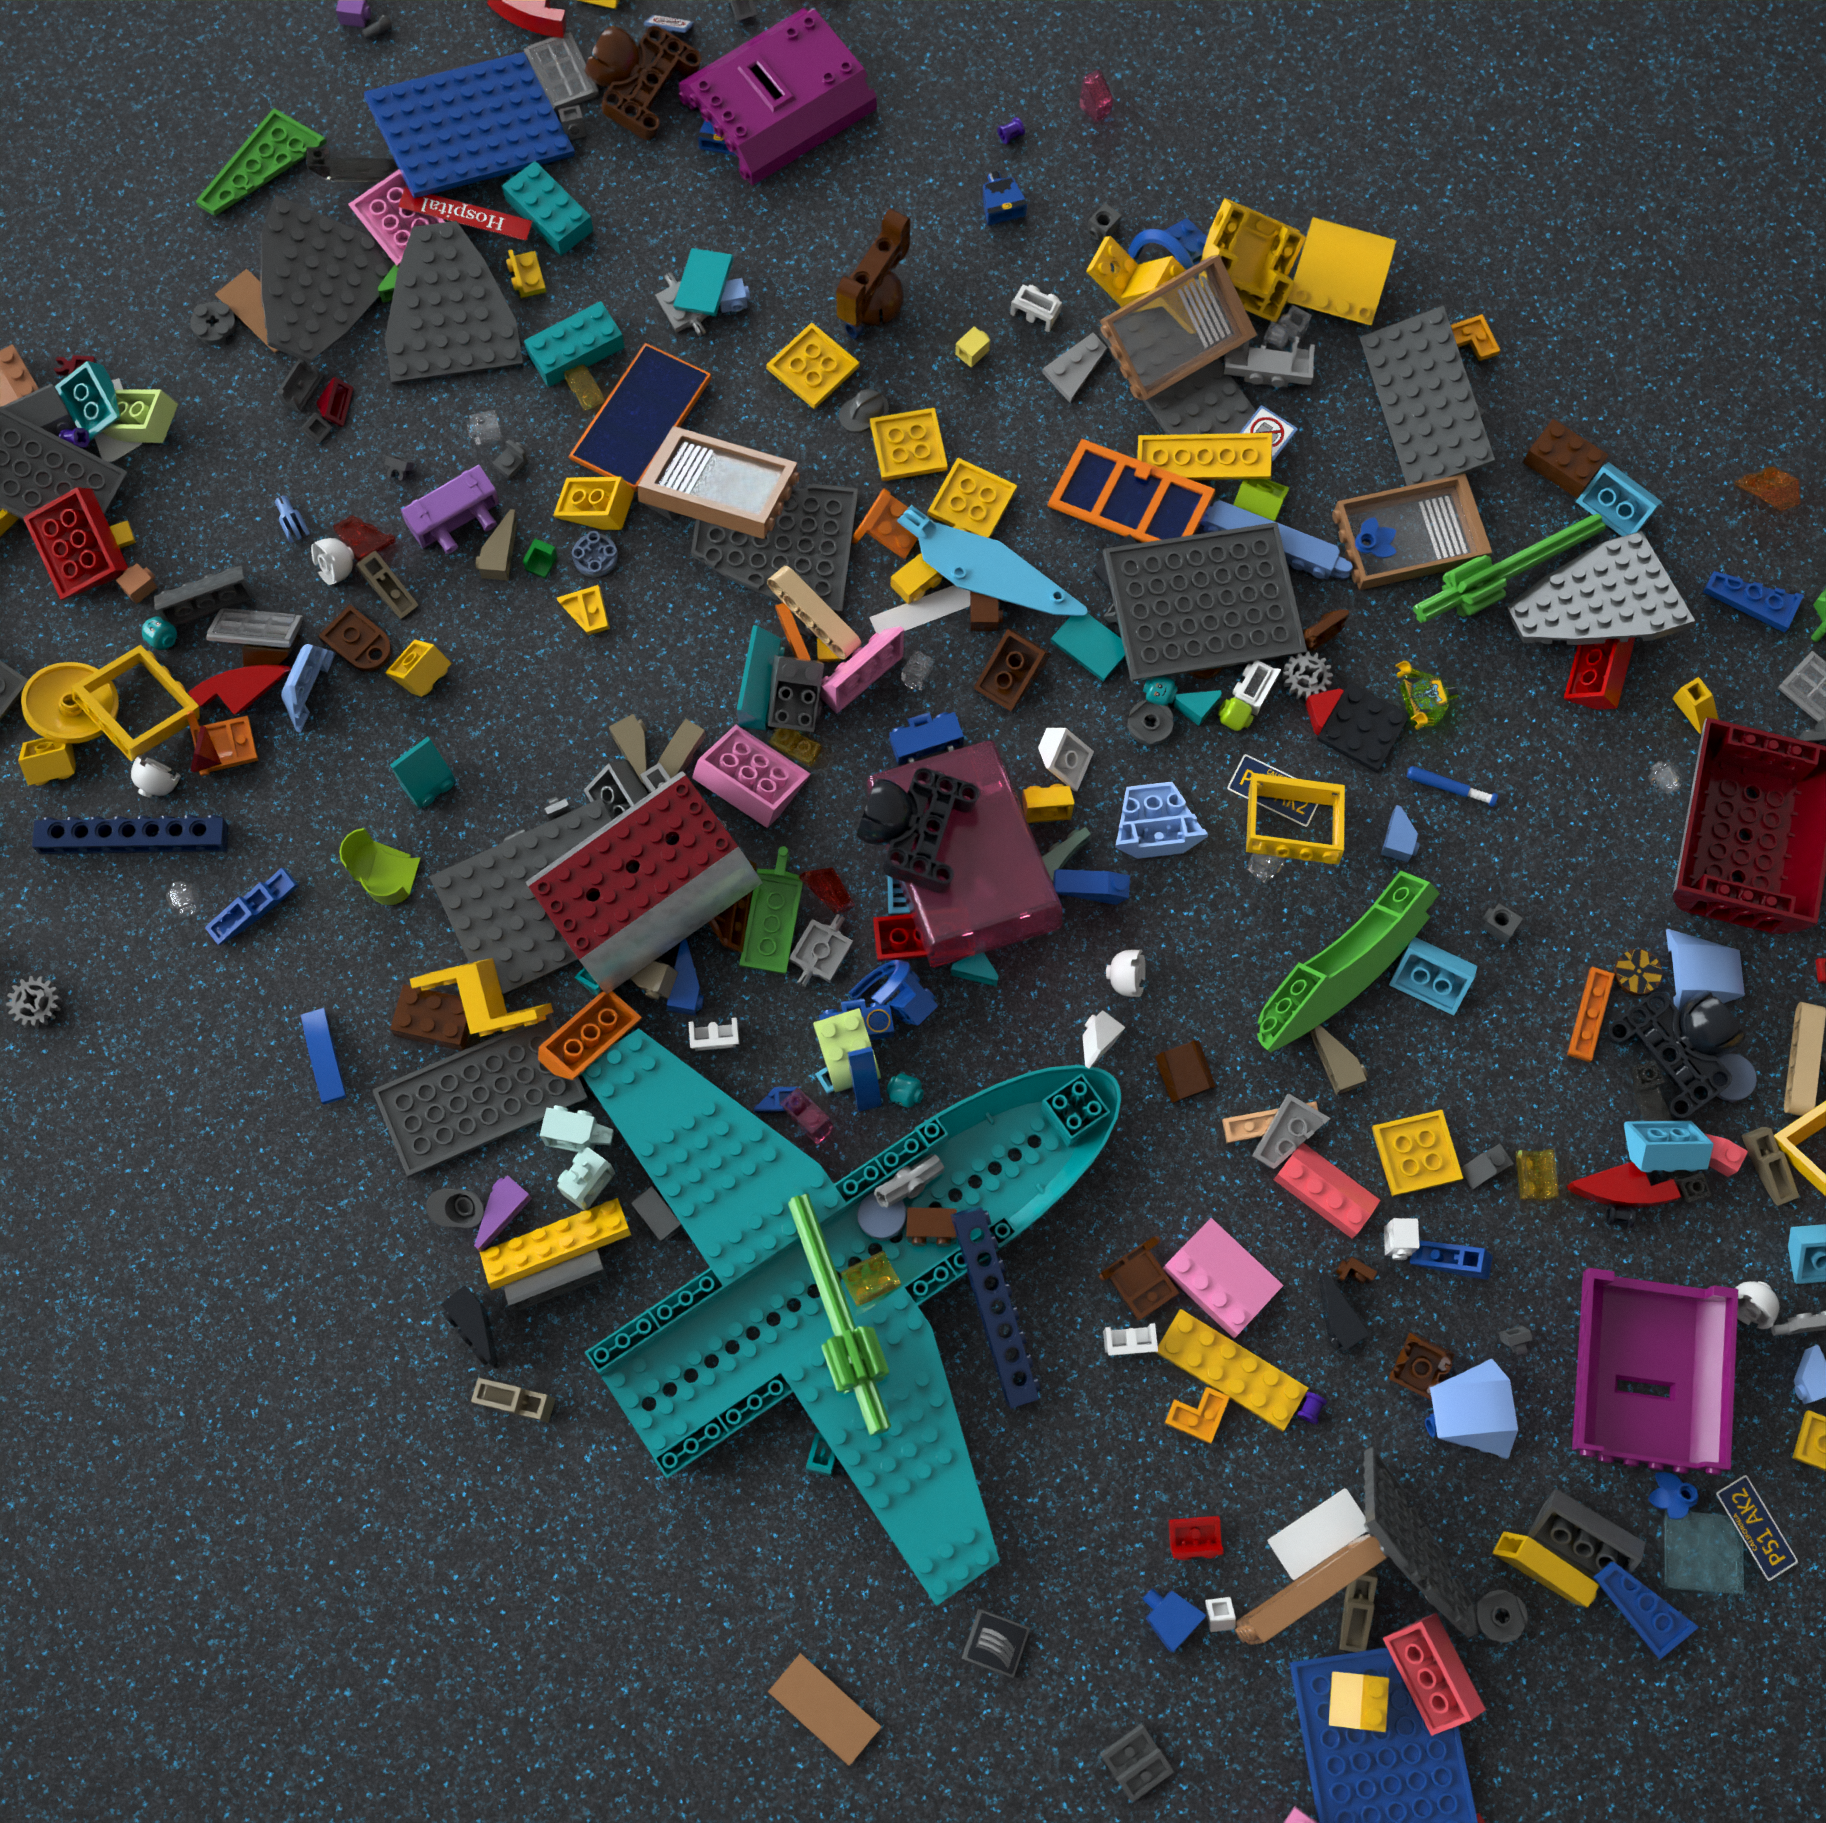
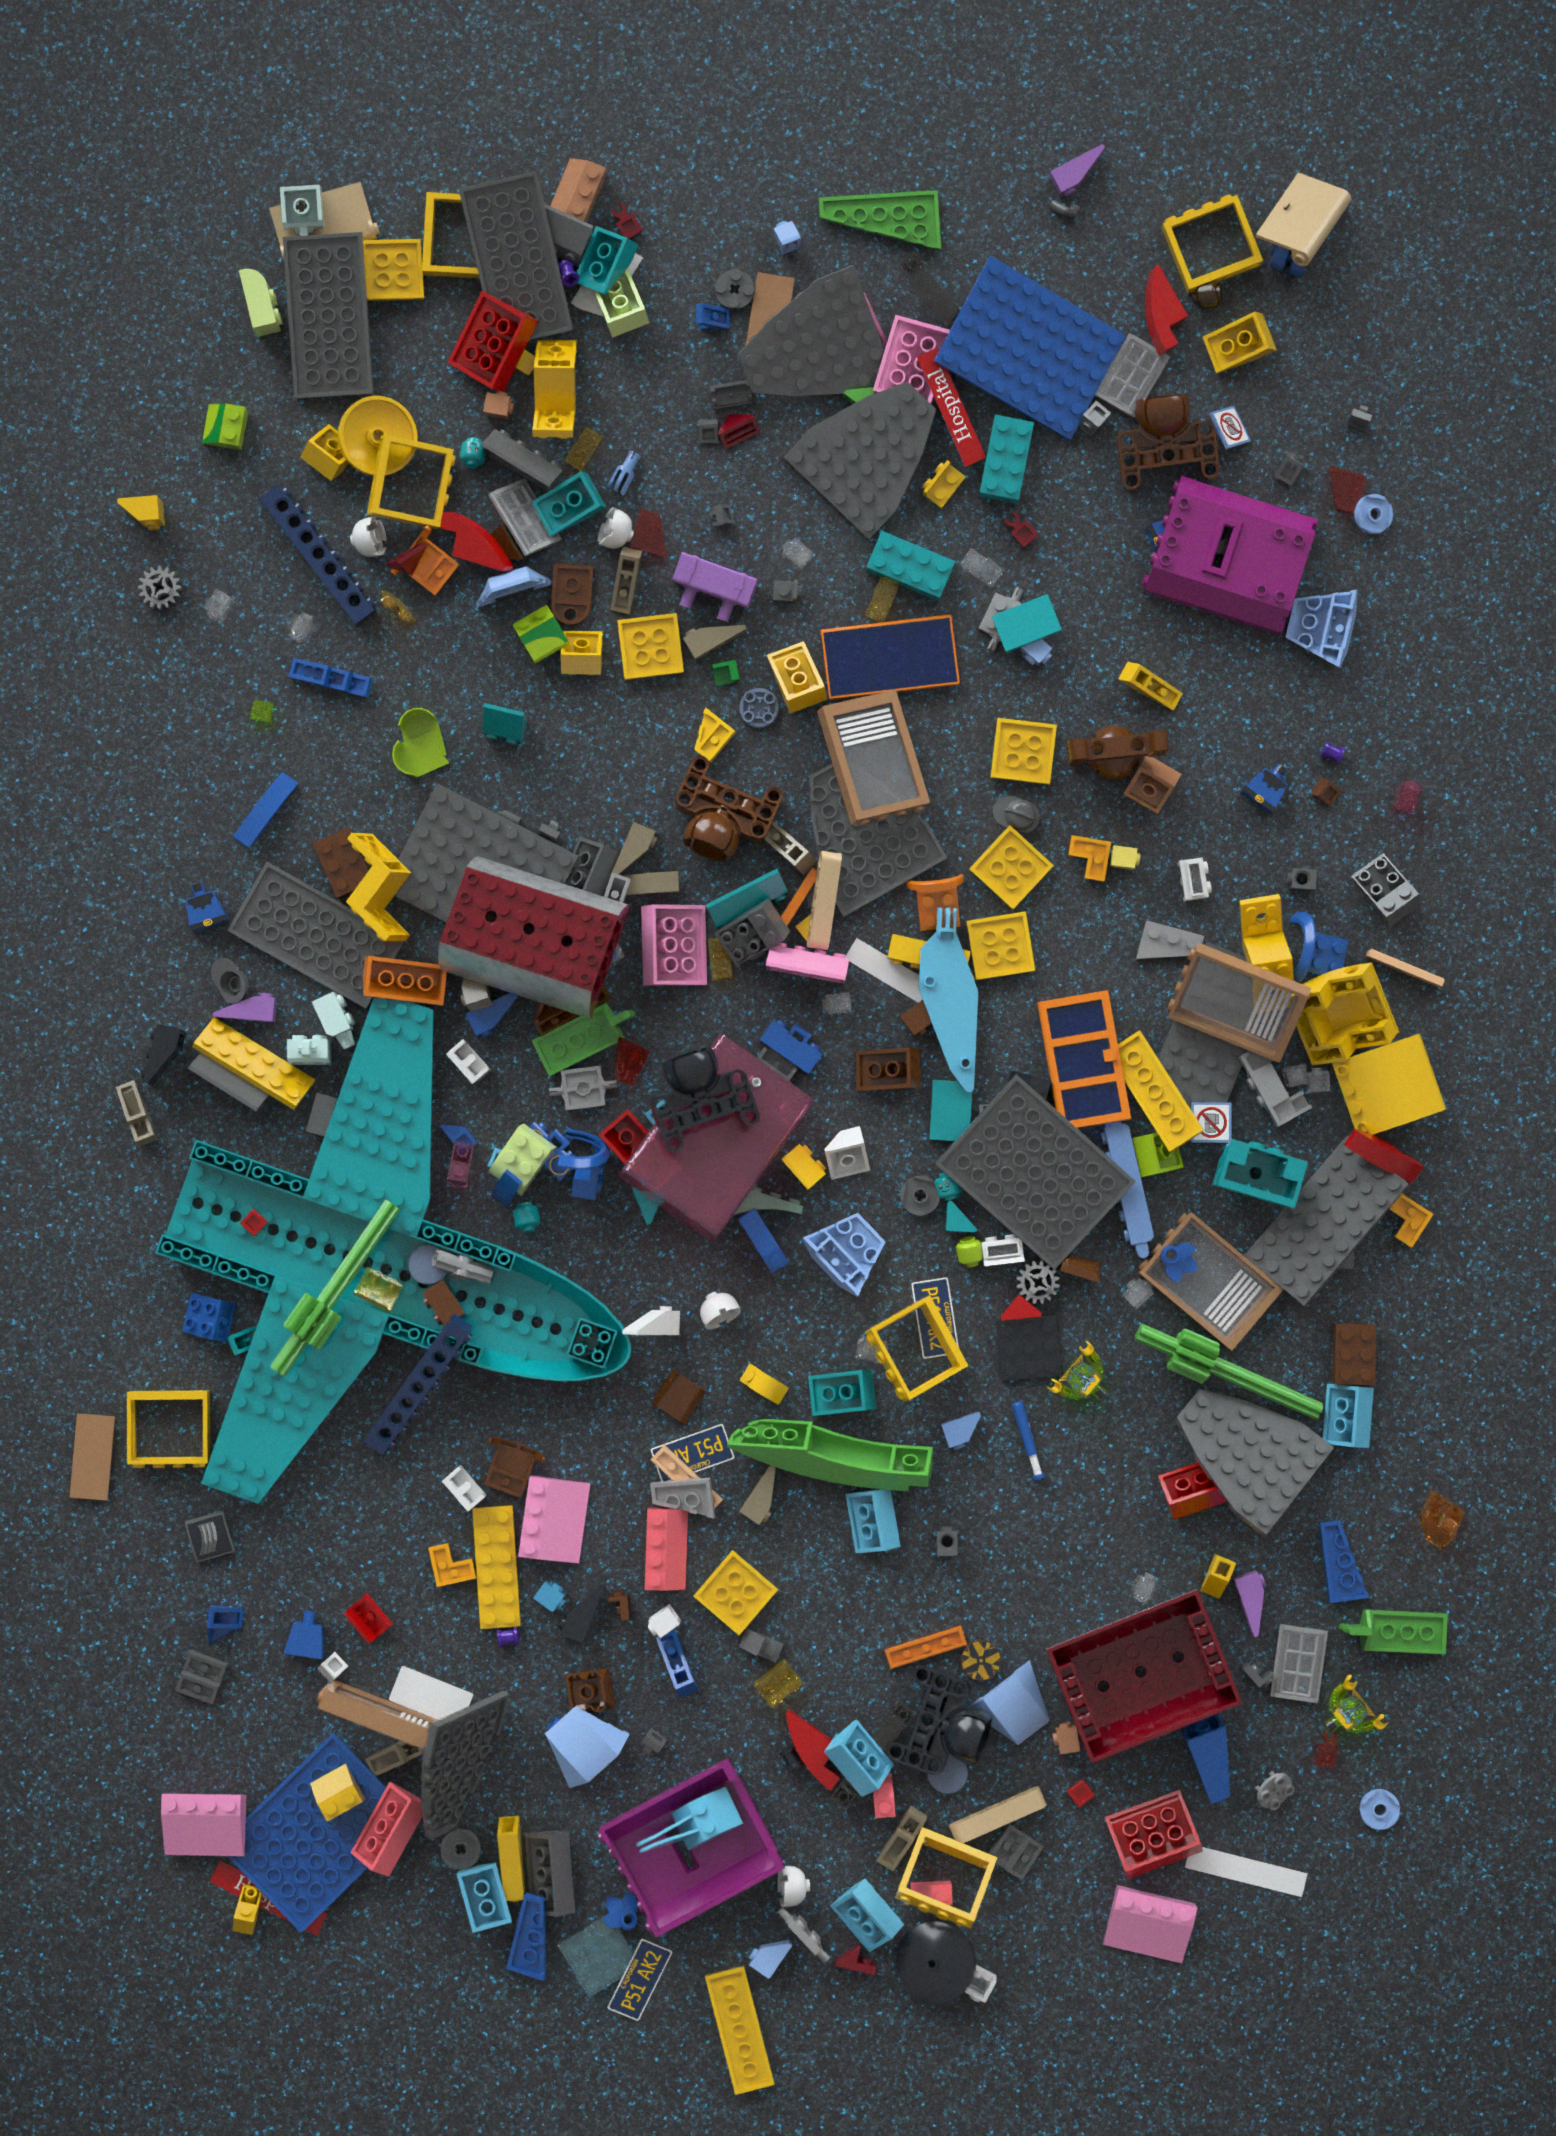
camera: 60 degrees right, 15 degrees up
(97, 958) = (219, 605): none -> clear brick
(164, 518) = (554, 388): none -> yellow bracket
(207, 246) = (787, 237): none -> light blue slope
(219, 355) = (712, 317): none -> blue slope
(229, 993) = (262, 711): none -> clear neon green tile
(232, 798) = (394, 603): none -> clear yellow slope
(239, 539) = (584, 448): none -> clear yellow slope
(276, 581) = (569, 503): none -> teal slope
(369, 1183) = (204, 909): none -> torso
(370, 686) = (540, 634): none -> lime slope
(462, 606) = (650, 646): none -> yellow plate
(622, 239) = (1022, 532): none -> dark red plate
(628, 291) = (981, 567): none -> clear slope
(664, 646) = (718, 823): none -> reddish brown beam
(711, 1358) = (254, 1222): none -> red tile
(740, 614) = (789, 848): none -> dark tan slope
(771, 1477) = (209, 1317): none -> blue bracket
(836, 228) = (1150, 685): none -> yellow slope
(894, 1620) = (159, 1462): none -> yellow window
(896, 63) = (1324, 624): none -> light blue wedge
(926, 283) = (1152, 784): none -> nougat slope
(950, 368) = (1095, 851): none -> light orange plate
(1040, 159) = (1326, 792): none -> reddish brown slope
(1094, 1694) = (223, 1621): none -> blue slope
(1165, 166) = (1387, 890): none -> dark grey slope
(1229, 981) = (764, 1384): none -> yellow brick
(1249, 193) = (1405, 968): none -> light nougat tile
(1250, 1090) = (699, 1450): none -> dark blue sticker
(1288, 918) = (842, 1392): none -> teal slope
(1298, 1335) = (550, 1596): none -> dark azure brick
(1346, 416) = (1277, 1175): none -> teal brick
(1379, 598) = (1137, 1292): none -> clear brick
(1400, 310) = (1384, 1155): none -> red slope
(1570, 1624) = (483, 1896): none -> medium azure slope
(1632, 1343) = (701, 1821): none -> medium azure slope
(1739, 693) = (1251, 1596): none -> medium lavender slope
(1768, 944) = (1066, 1738): none -> nougat brick

